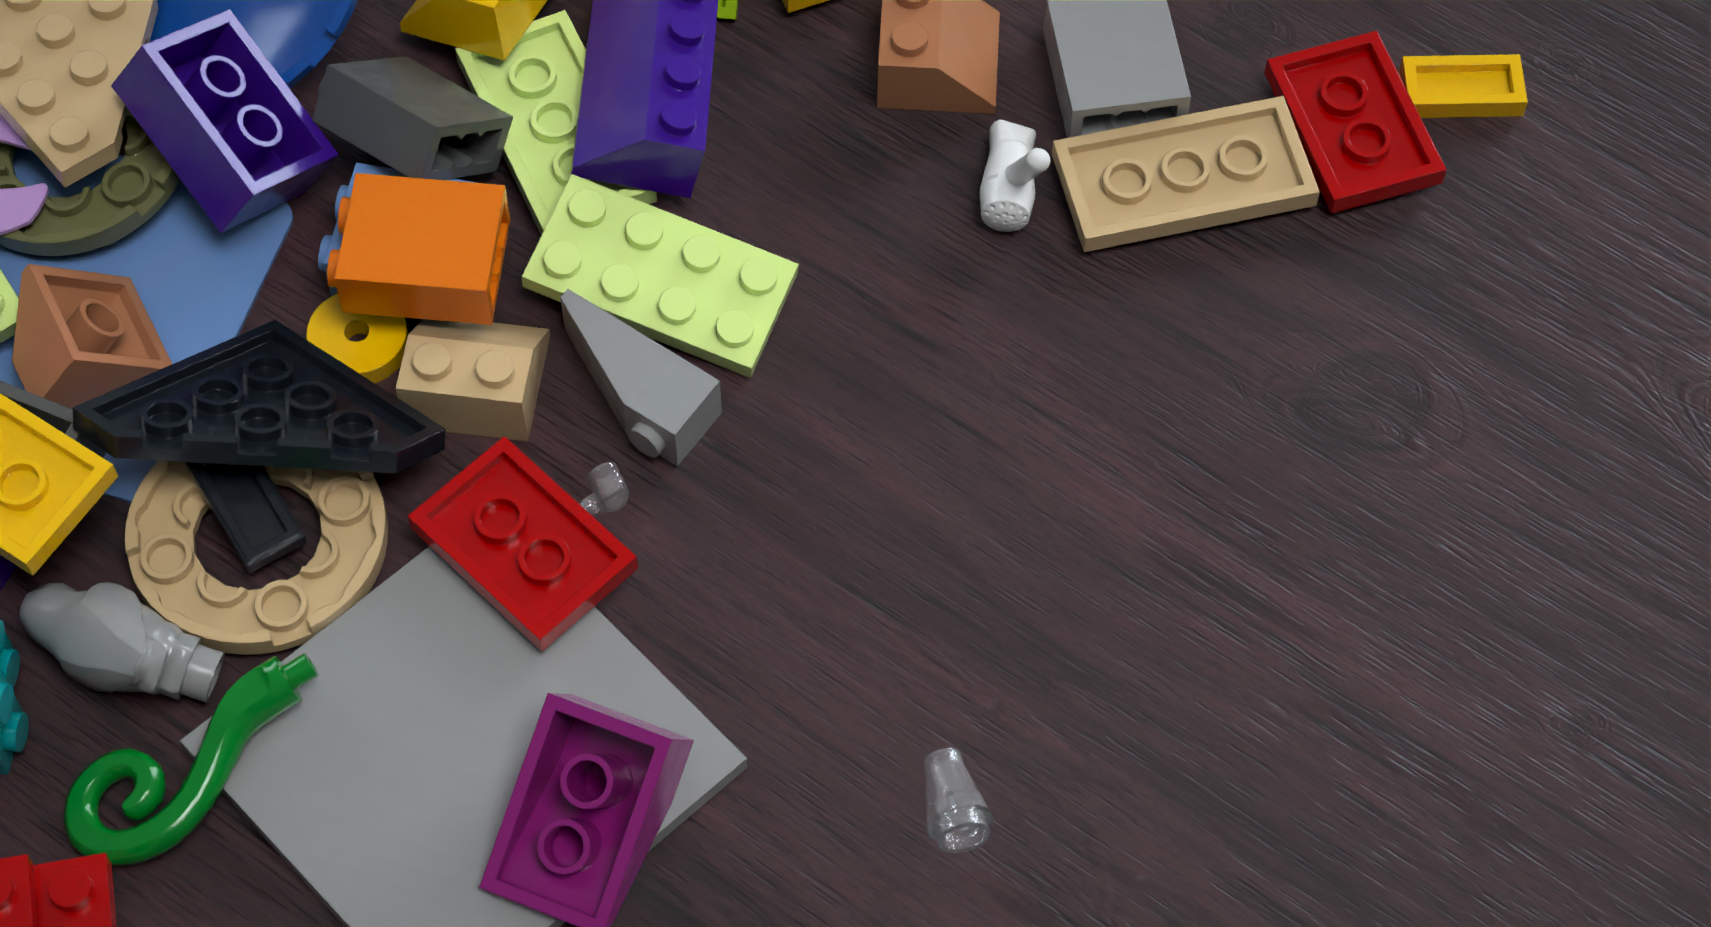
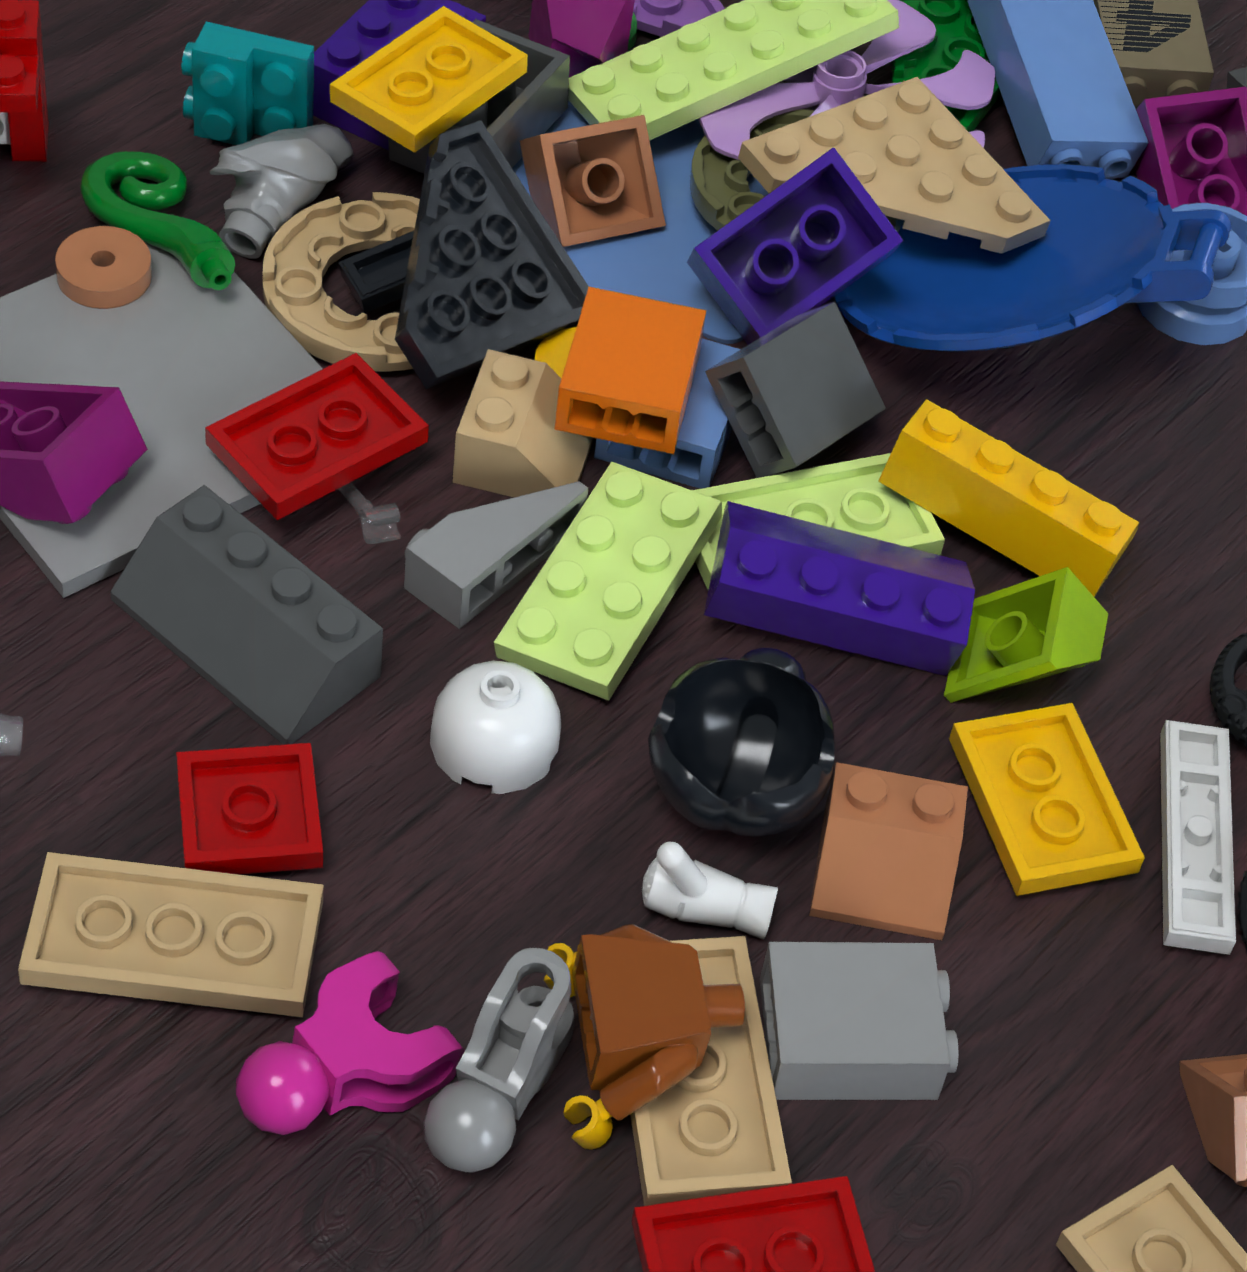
camera: 90 degrees right, 10 degrees down
(287, 830) = (103, 267): none -> nougat piece
(763, 580) = (249, 616): none -> dark grey slope
(852, 357) = (496, 727): none -> white cylinder
(869, 134) = (744, 744): none -> black piece
(993, 544) = (249, 809): none -> red plate
(1144, 584) = (172, 934): none -> tan plate
(1169, 197) = (639, 1021): none -> dark orange torso
(1231, 292) = (504, 1064): none -> light grey piece
(1239, 426) = (346, 1056): none -> dark pink piece

